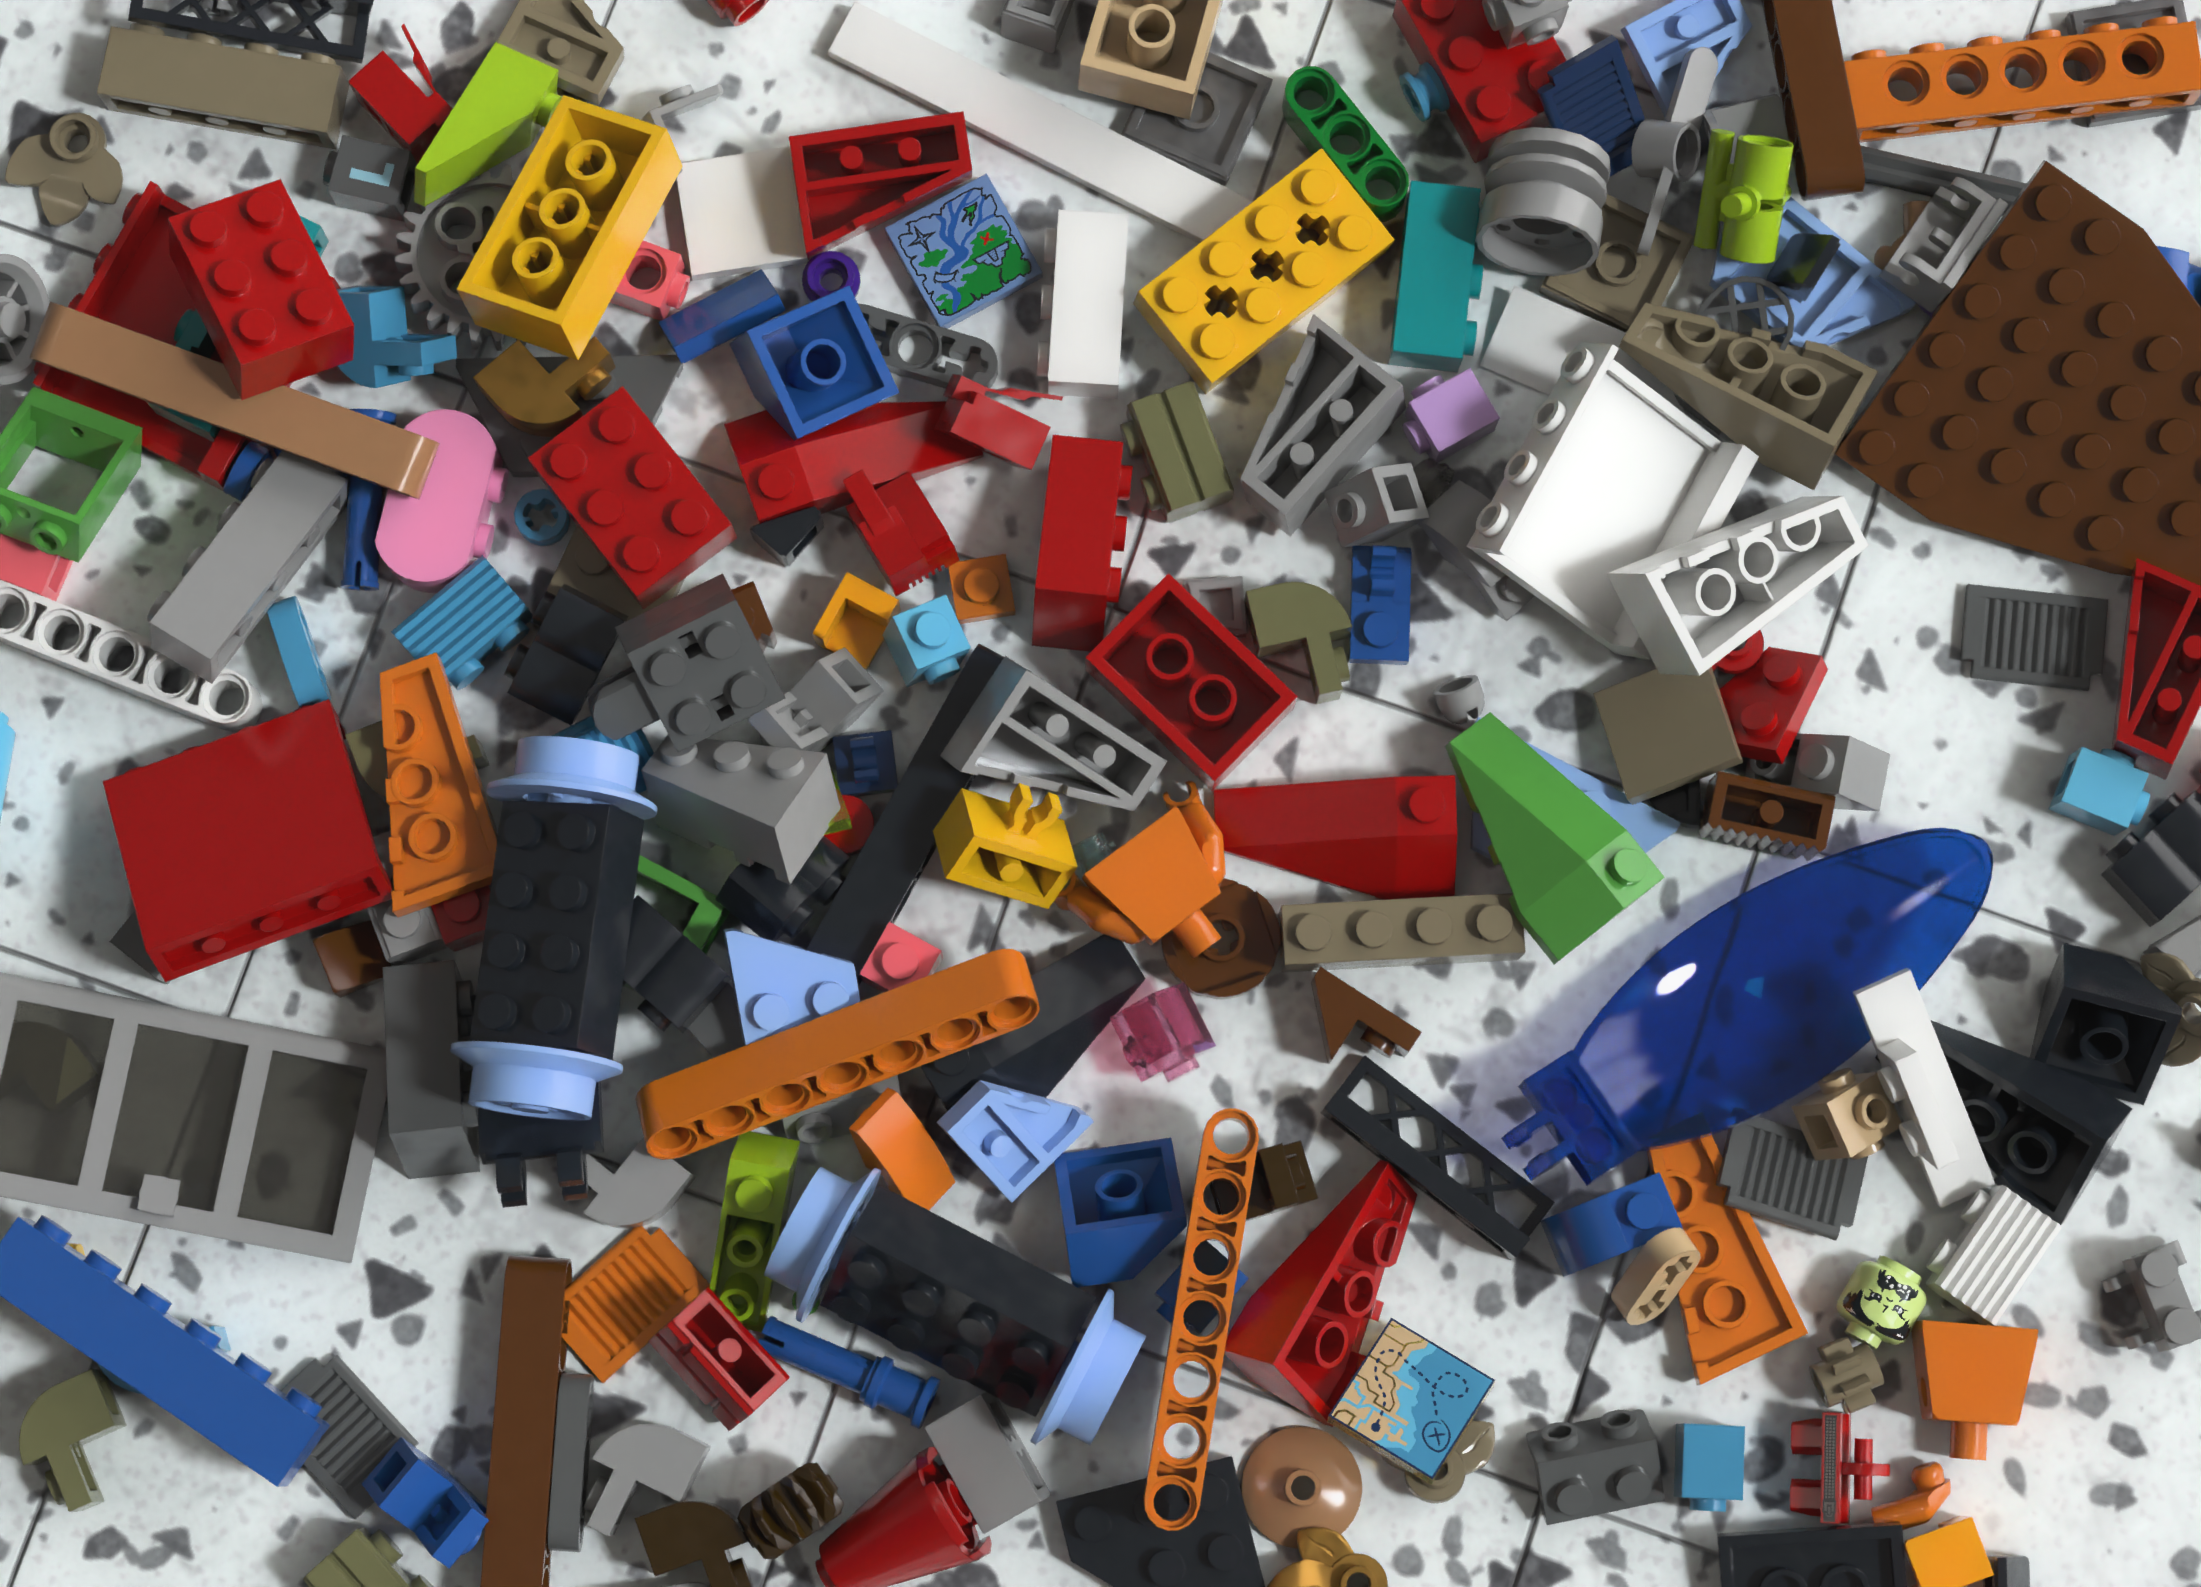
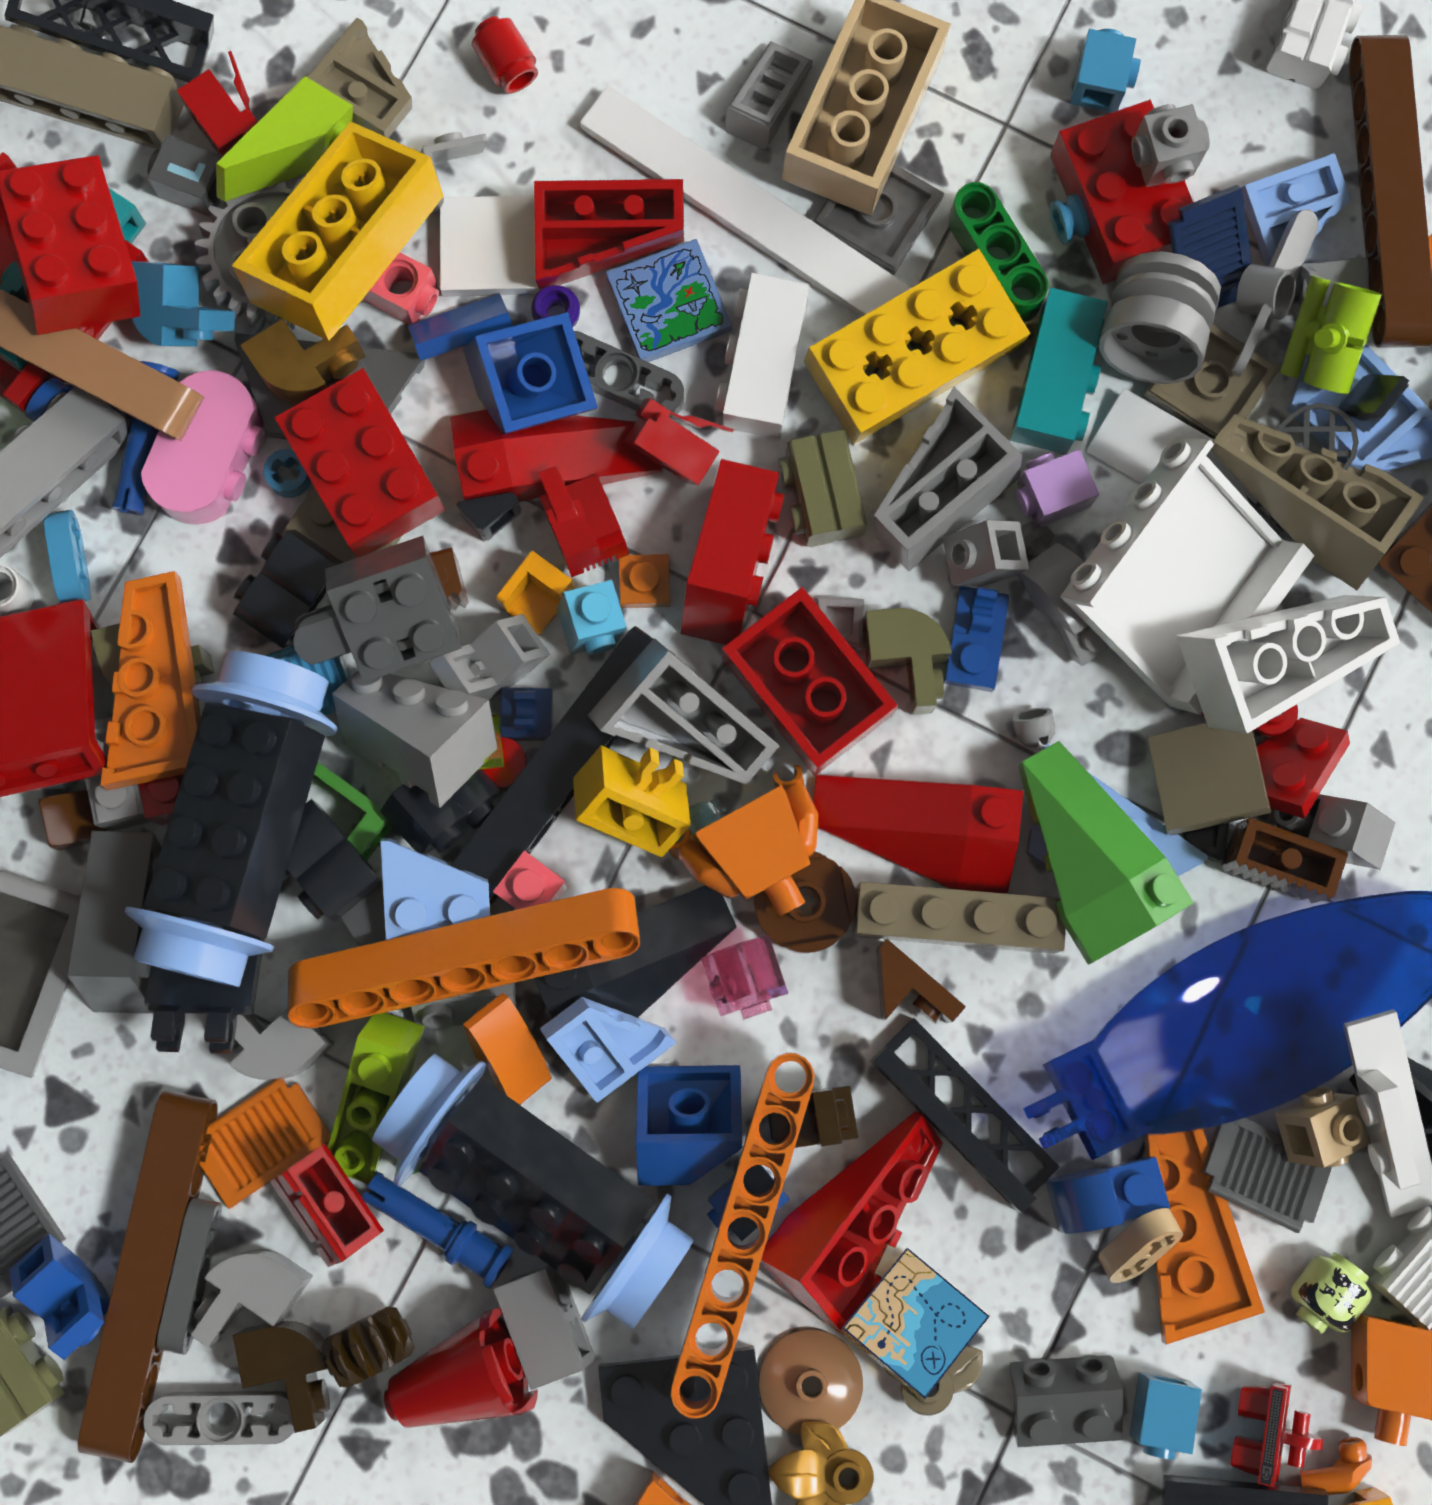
camera: 10 degrees right, 0 degrees up
(466, 623) = (209, 552): dark azure brick -> none
(1846, 1375) = (1294, 1353): dark tan gear -> none

